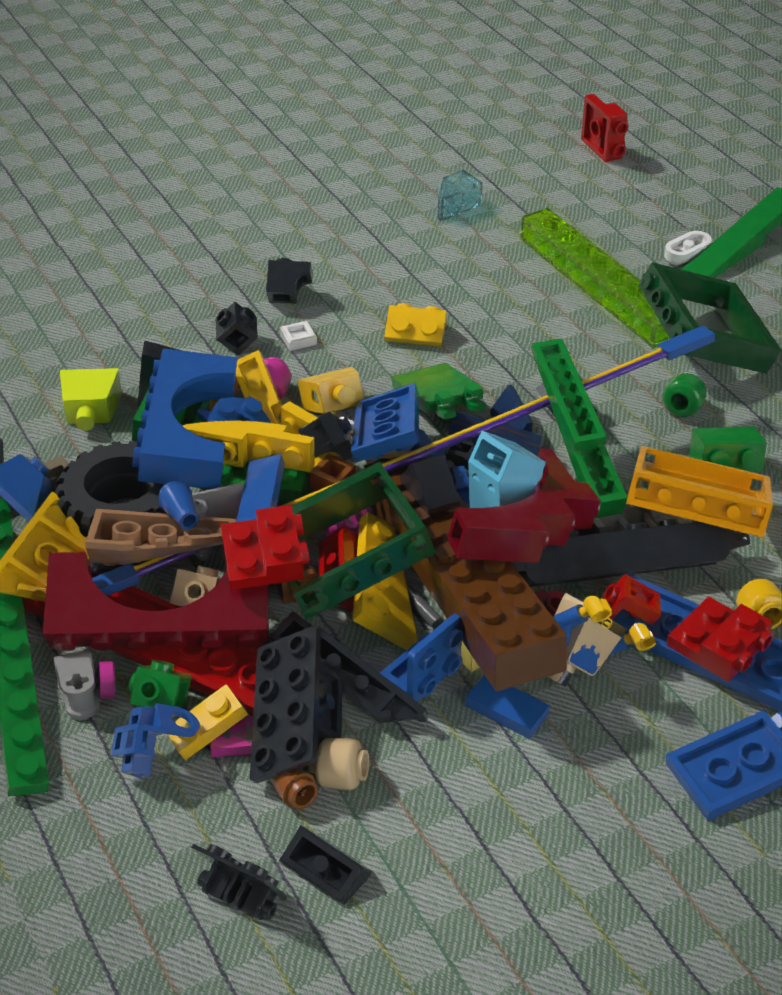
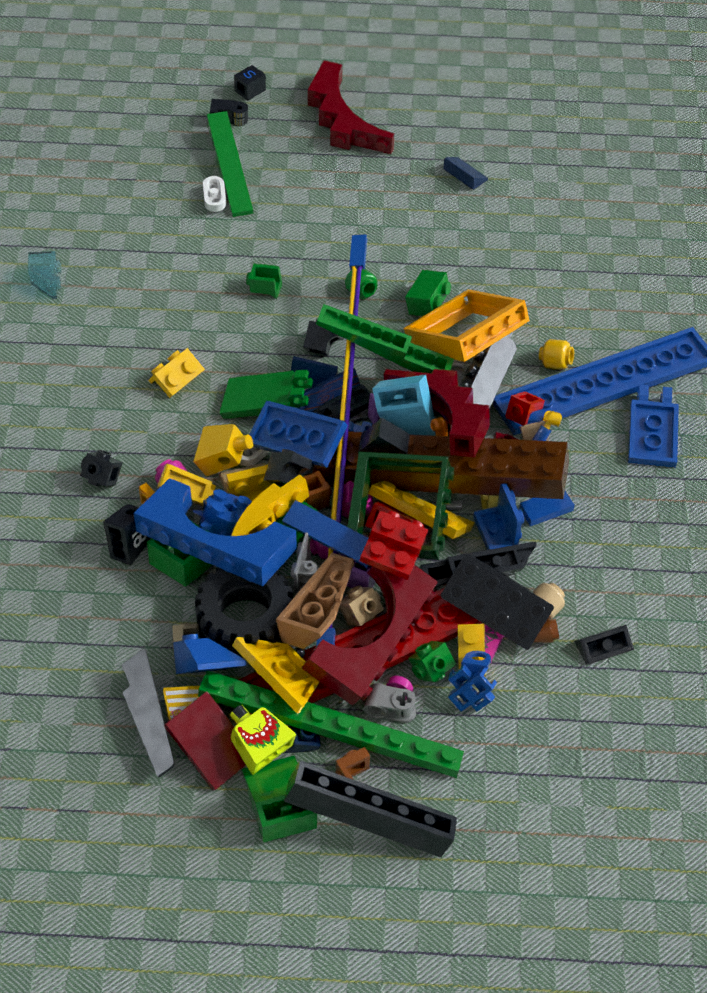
camera: 60 degrees left, 10 degrees up
(90, 395) = (103, 587): neon yellow torso -> none
(179, 504) = (312, 572): blue cone -> none
(243, 883) = (601, 686): black hinge -> none
(286, 279) = (68, 416): black brick -> none
(298, 335) = (126, 441): white tile -> none
(592, 272) = (204, 252): clear neon green brick -> none
(604, 128) = (49, 153): red plate -> none
(607, 328) = (264, 279): none -> green window
(722, 637) = (575, 384): red plate -> none
(750, 342) = (313, 215): dark green window -> none

